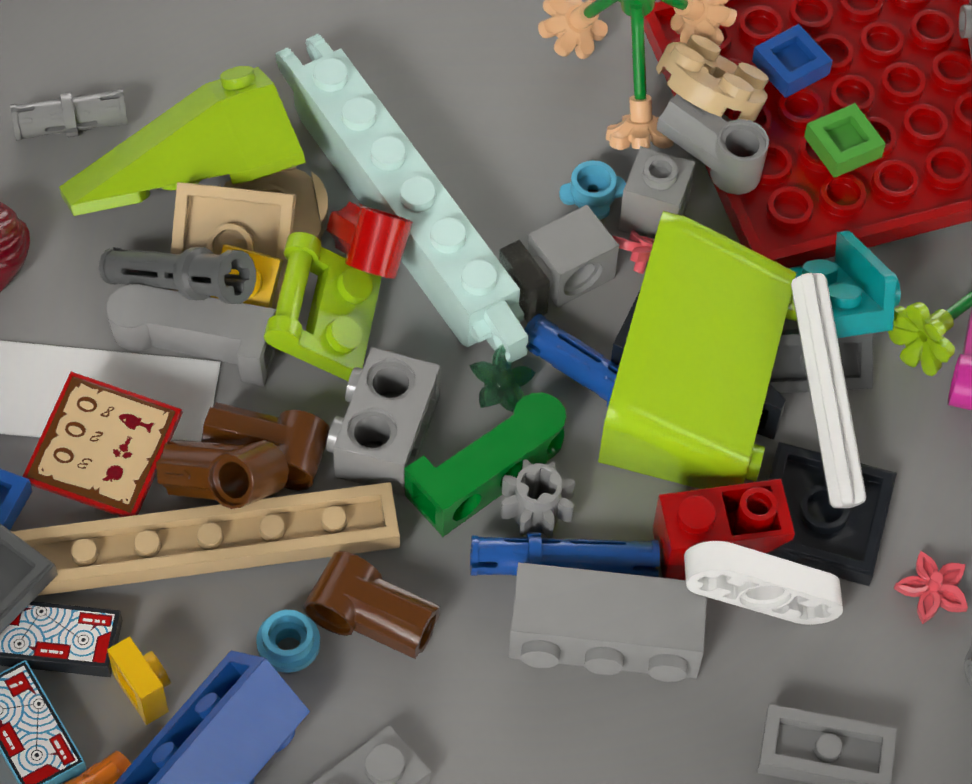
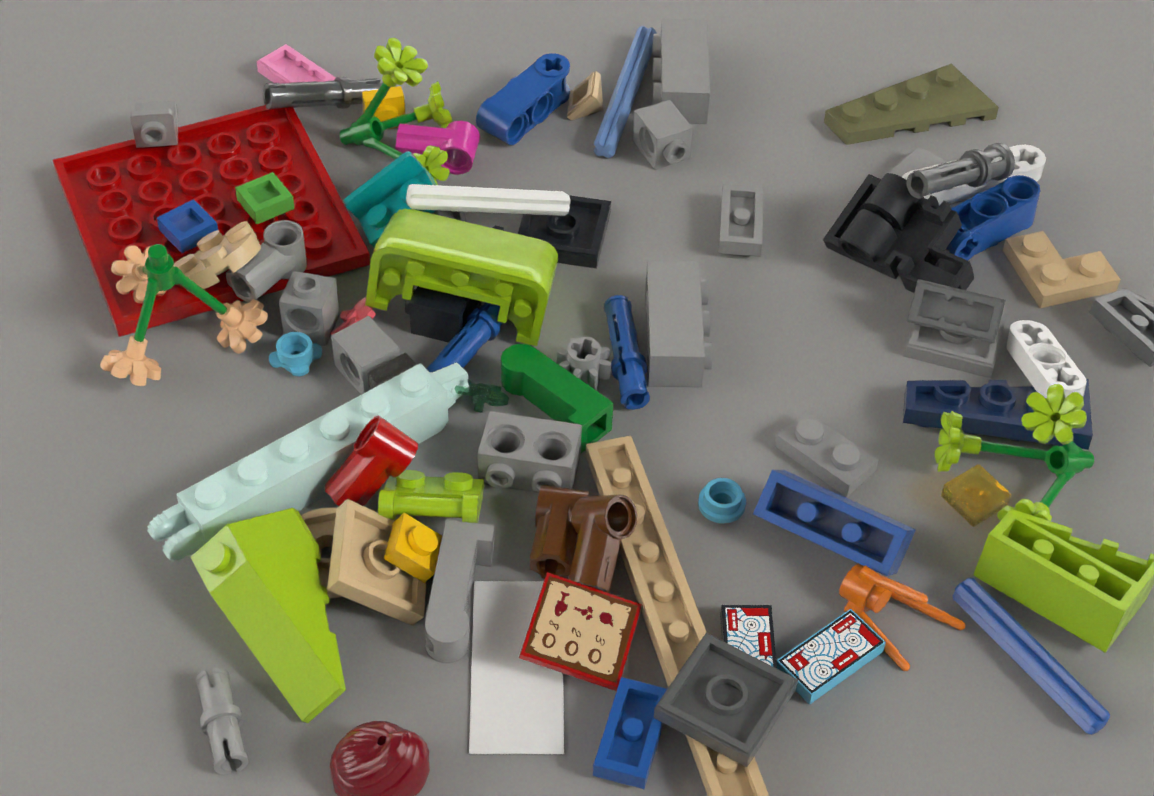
camera: 95 degrees left, 10 degrees down
(140, 678) = (780, 579): yellow plate -> none
(194, 273) = (425, 563): dark grey pin -> none
(357, 599) = (686, 457): reddish brown piece -> none
(741, 514) = (596, 262): red slope -> none
(762, 583) = (642, 234): white beam -> none
(934, 587) = (611, 178): coral plant -> none

